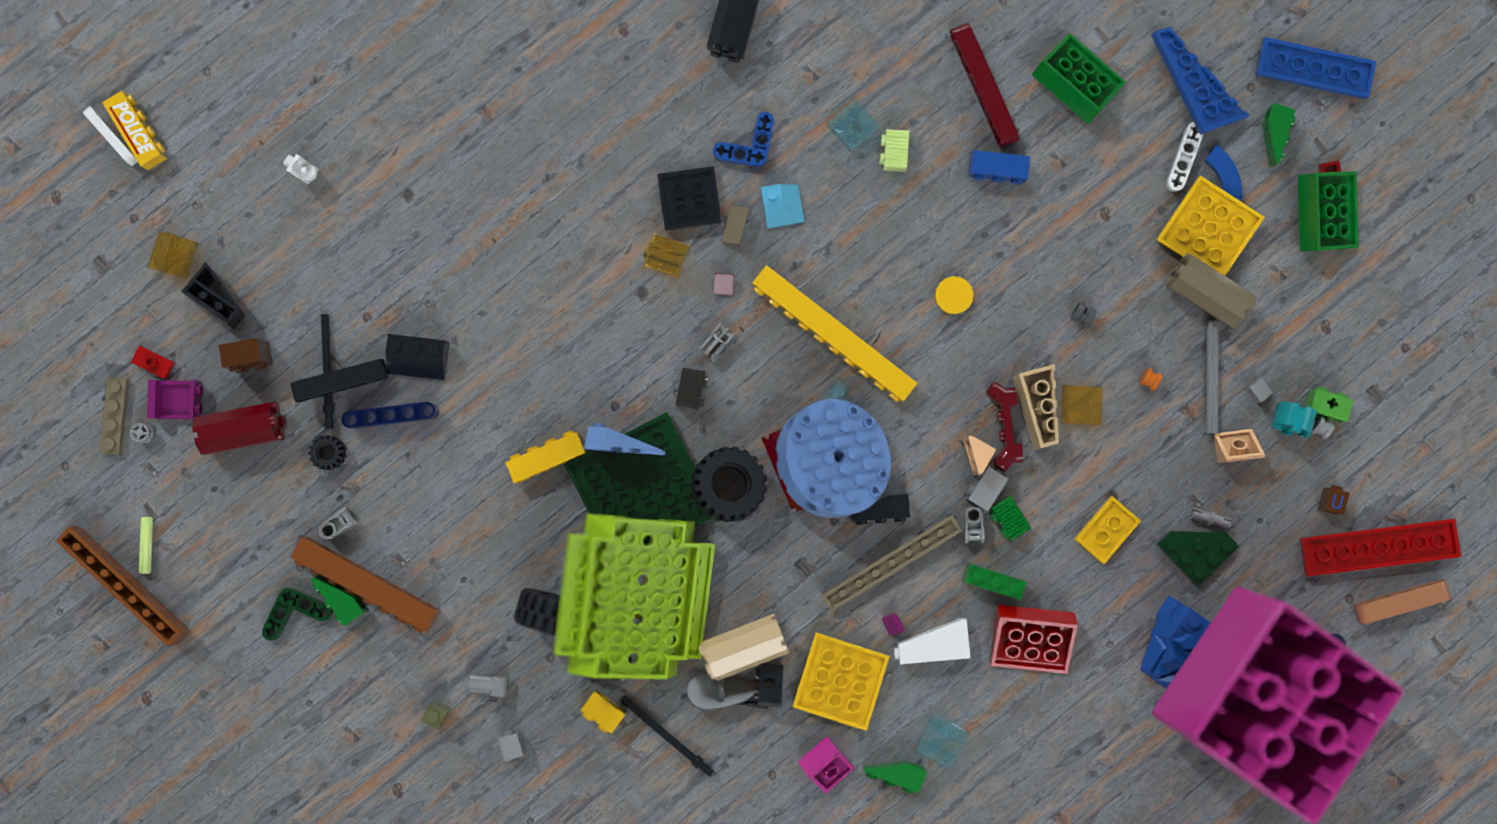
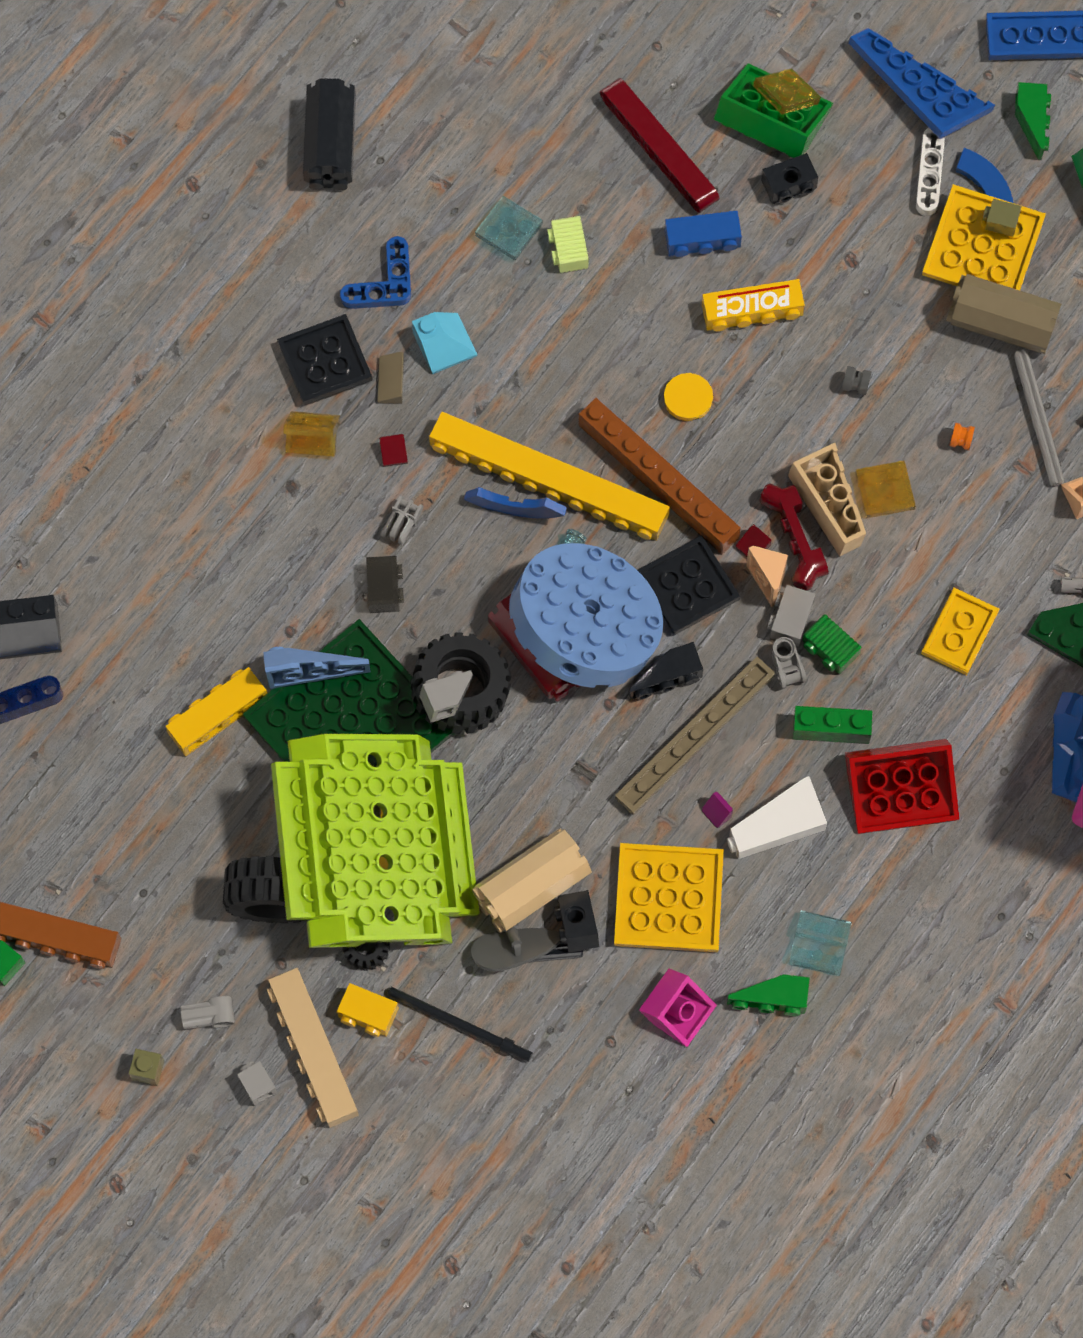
camera: 15 degrees left, 15 degrees down
(557, 730) = (313, 1048): none -> tan brick
(712, 503) = (444, 695): none -> light grey slope
(809, 355) = (530, 508): none -> blue tile
(916, 354) = (659, 476): none -> dark orange brick
(916, 445) = (689, 584): none -> black plate
(972, 424) = (753, 537): none -> dark red slope
(1021, 234) = (753, 305): none -> yellow brick
(1086, 132) = (797, 168): none -> black brick
(1093, 65) = (786, 91): none -> clear yellow plate
(1231, 213) = (1002, 217): none -> olive brick

